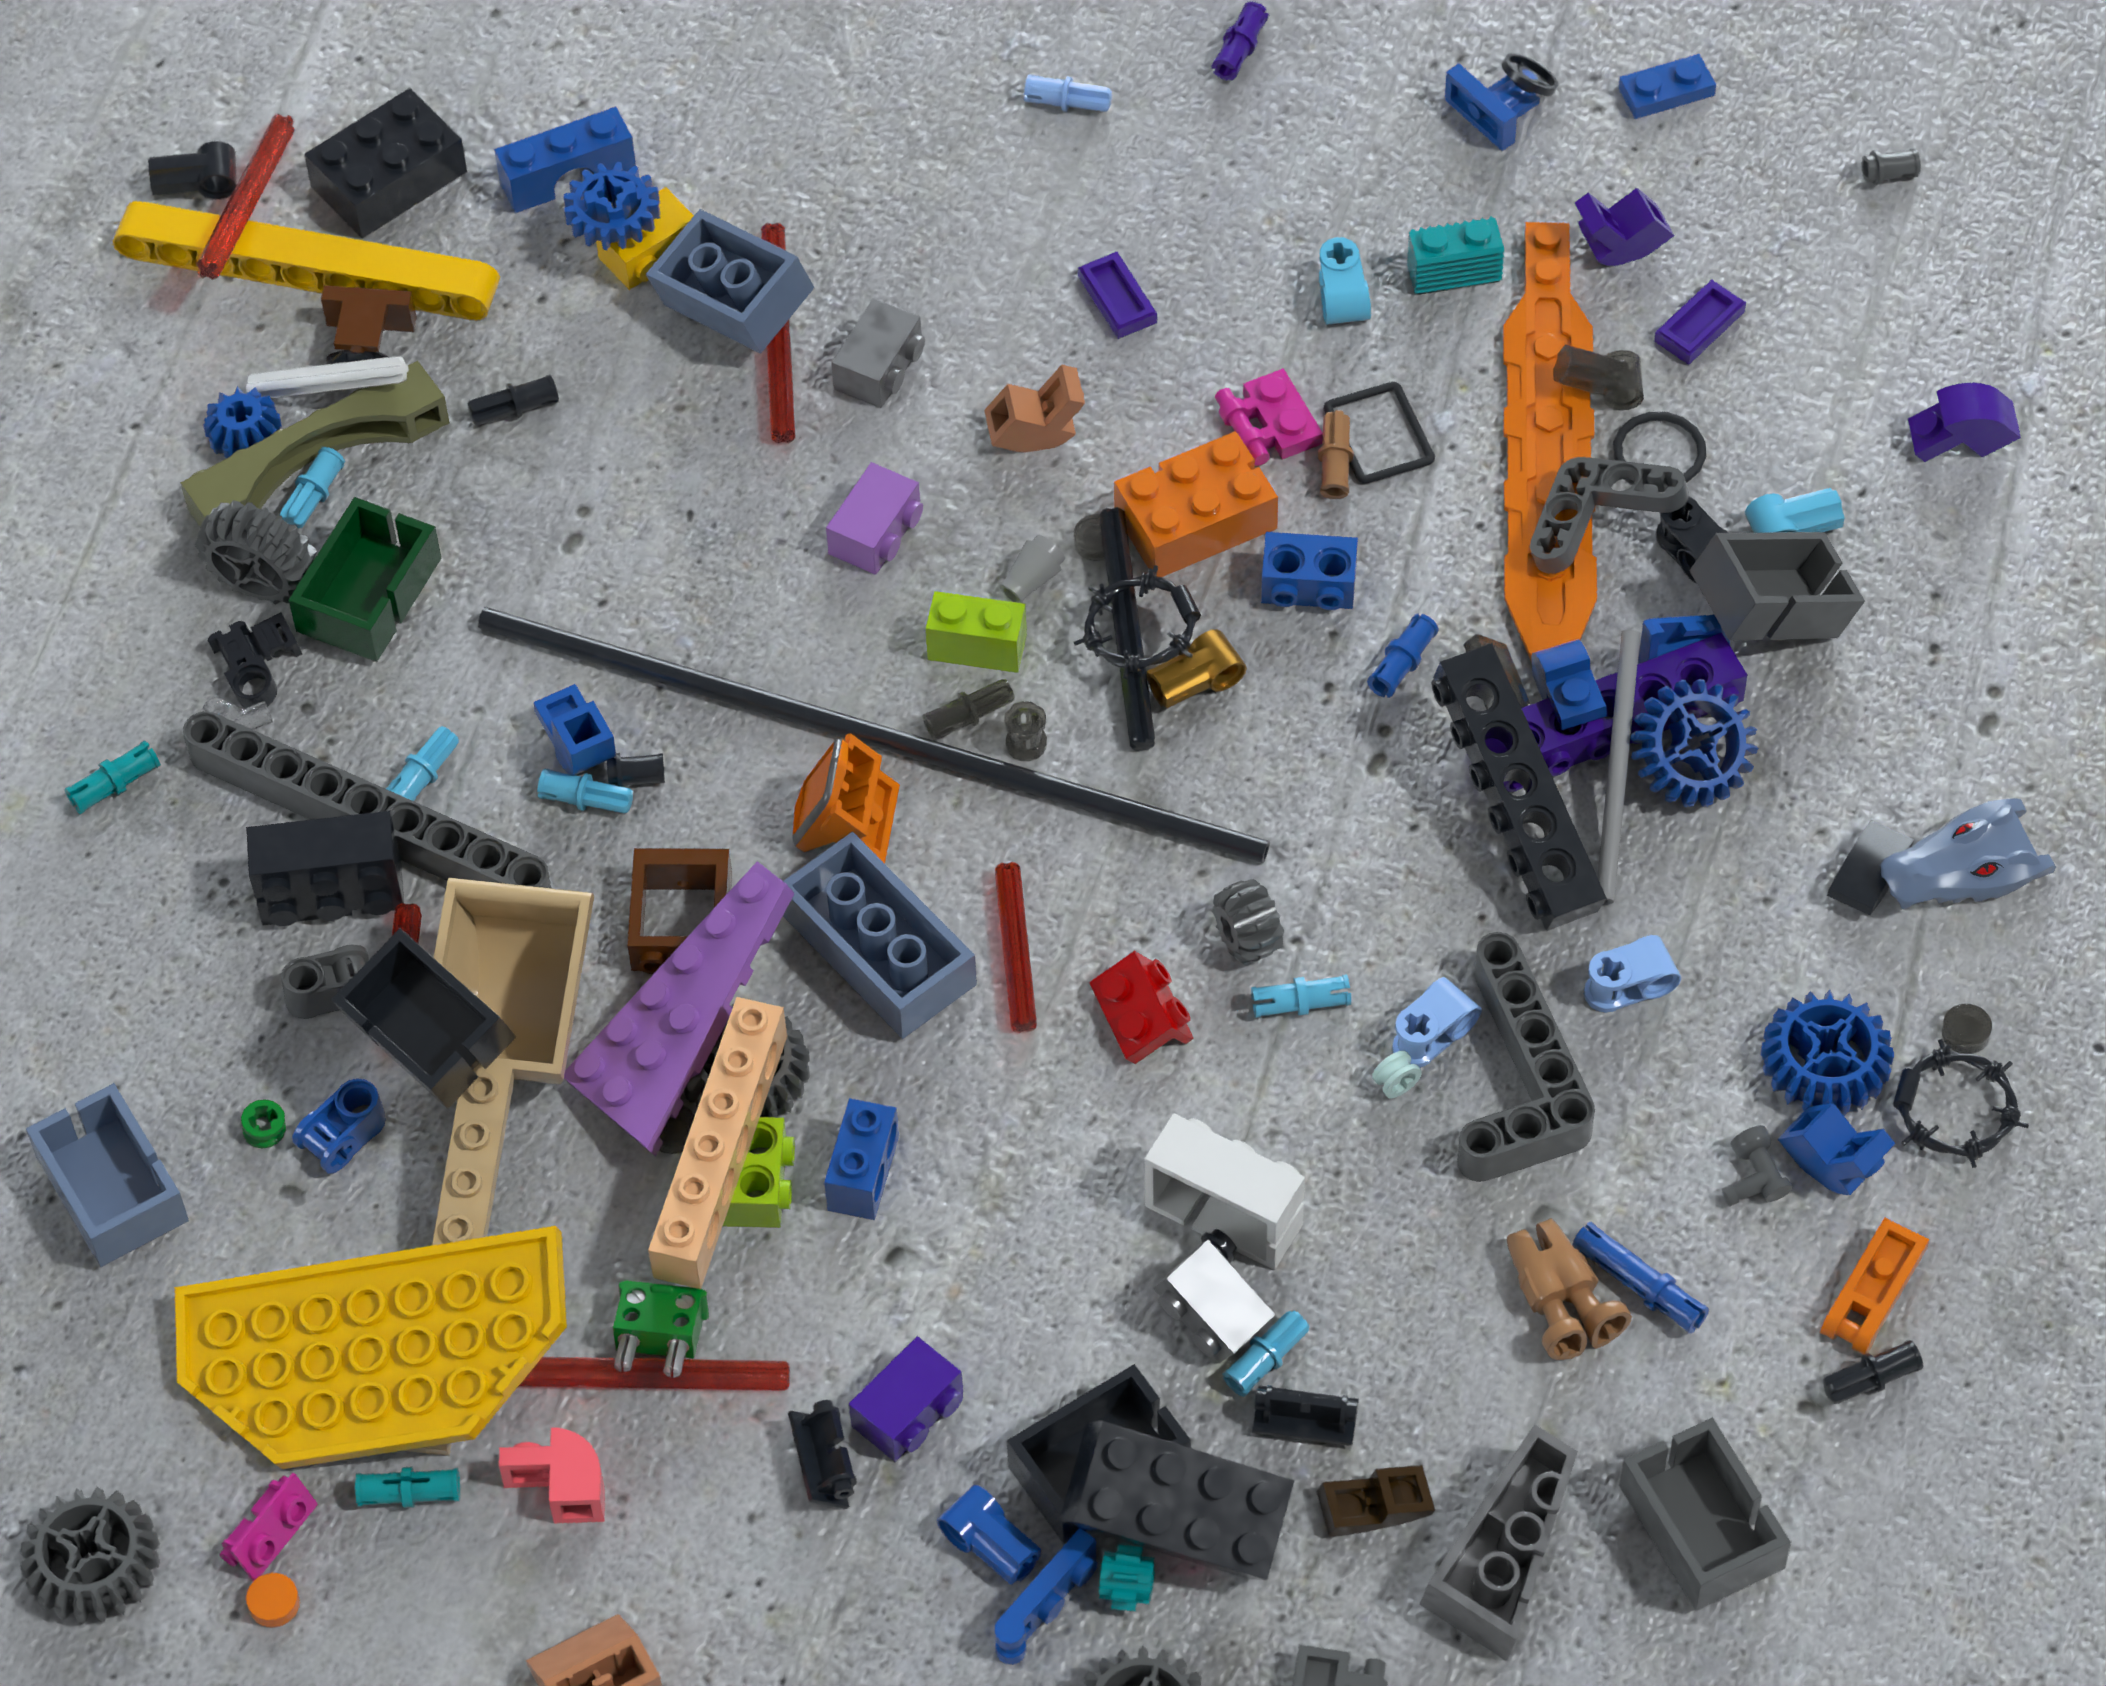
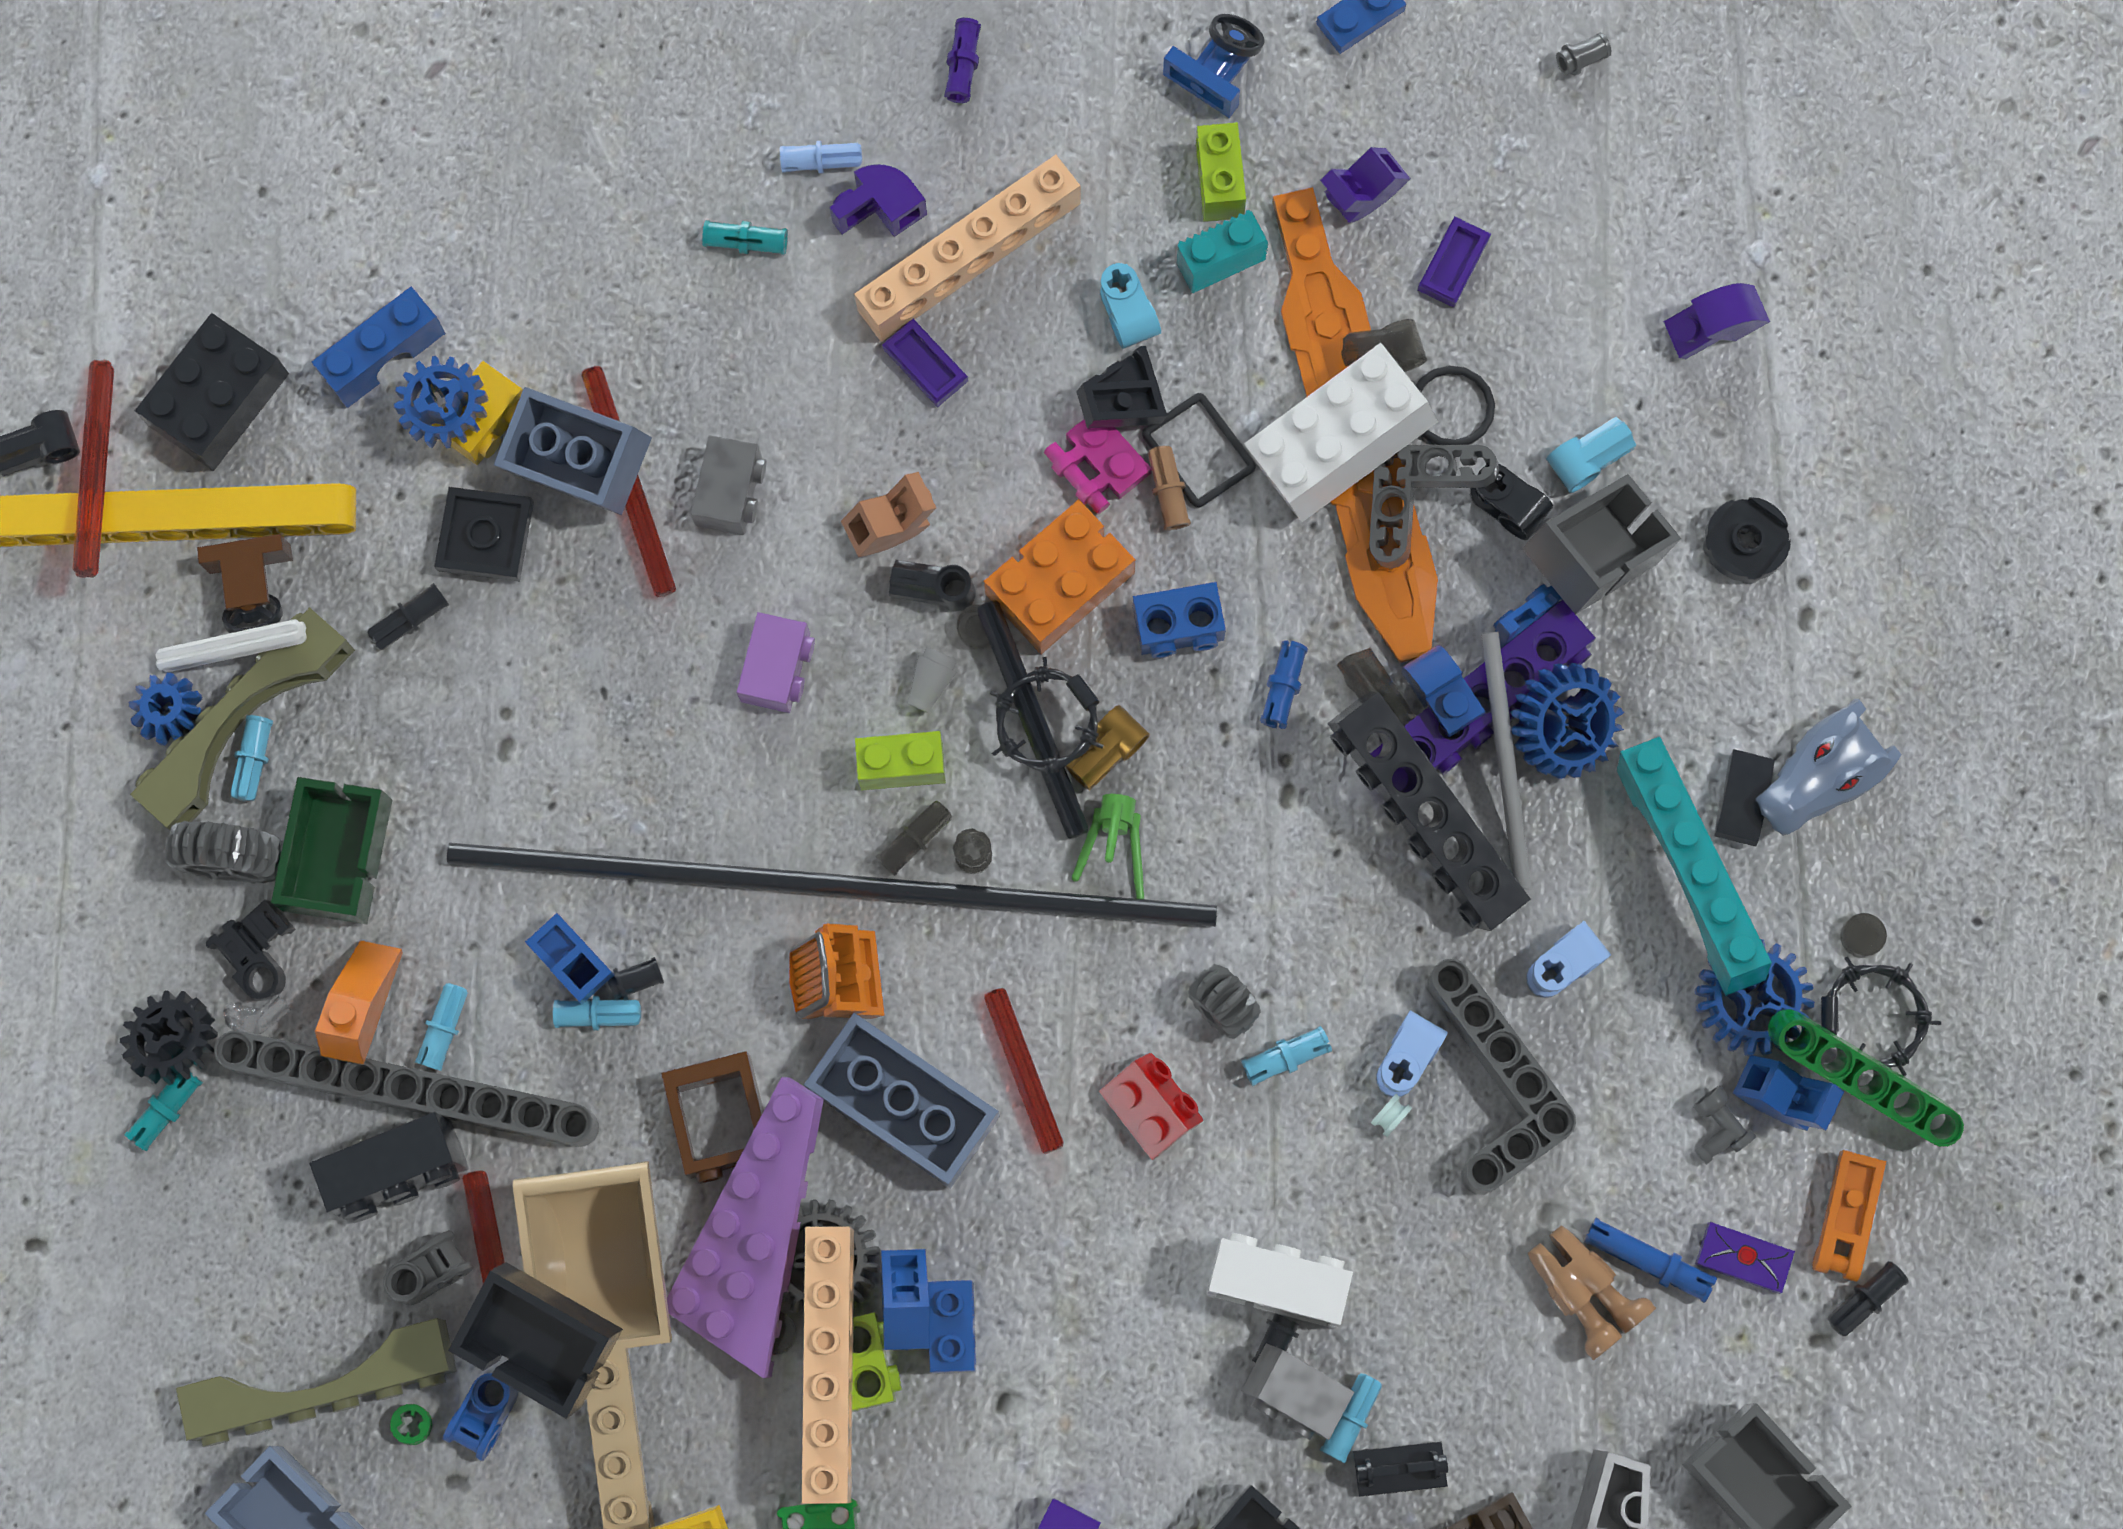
camera: 15 degrees left, 20 degrees up
(140, 709) = (168, 1037): none -> black gear
(279, 1056) = (406, 1357): none -> olive arch
(340, 717) = (357, 1002): none -> orange slope
(615, 344) = (484, 534): none -> black plate
(818, 1110) = (905, 1299): none -> blue brick
(941, 138) = (745, 237): none -> teal pin
(1071, 487) = (927, 584): none -> black piece
(1117, 133) = (883, 192): none -> dark purple brick
(1184, 737) = (1116, 818): none -> bright green plant
(1194, 198) = (968, 248): none -> light nougat brick
(1312, 358) = (1123, 394): none -> black wing
(1476, 178) = (1220, 171): none -> lime brick
(1529, 430) = (1341, 432): none -> white brick
(1748, 1303) = (1744, 1257): none -> dark purple tile
(1801, 929) = (1721, 917): none -> teal arch
(1932, 1168) = (1879, 1092): none -> green beam
(1939, 655) = (1747, 563): none -> black plate

